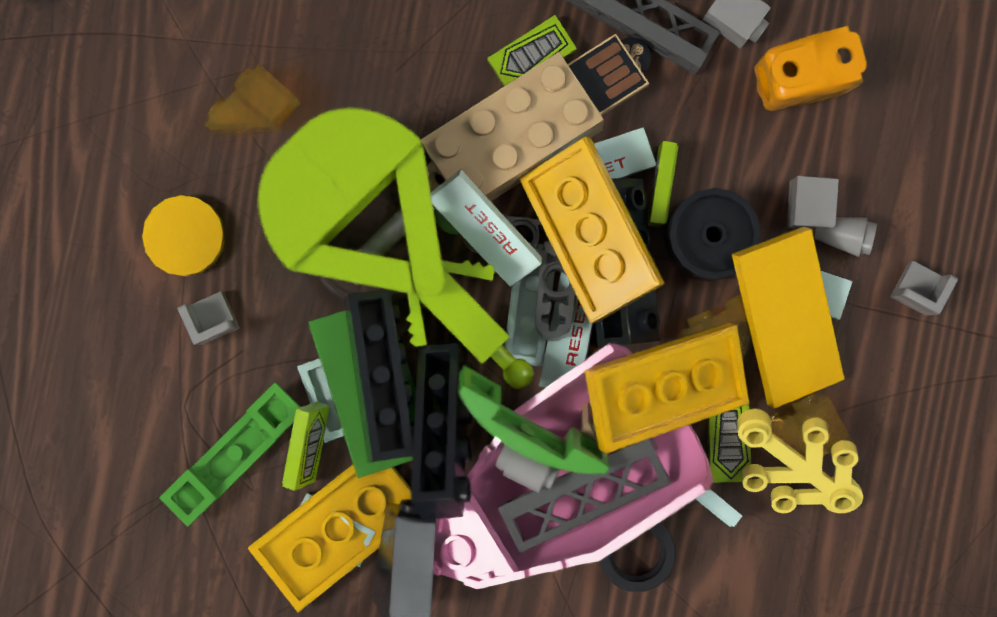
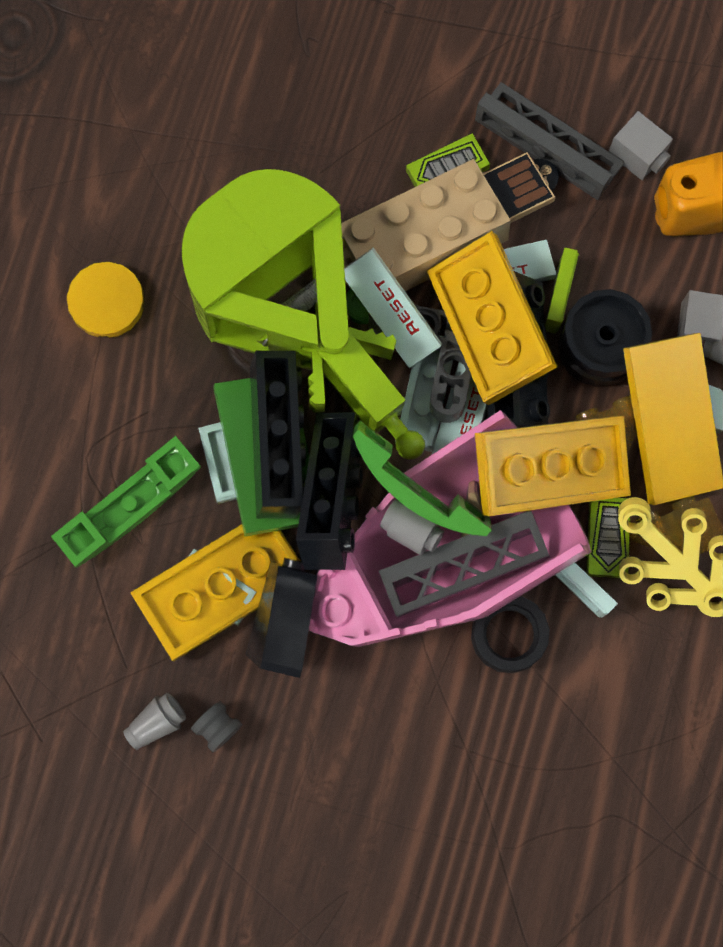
camera: 10 degrees right, 10 degrees down
(208, 319) = (120, 376): light grey panel -> none
(254, 107) = (182, 186): clear yellow slope -> none
(305, 445) = (198, 499): lime tile -> none

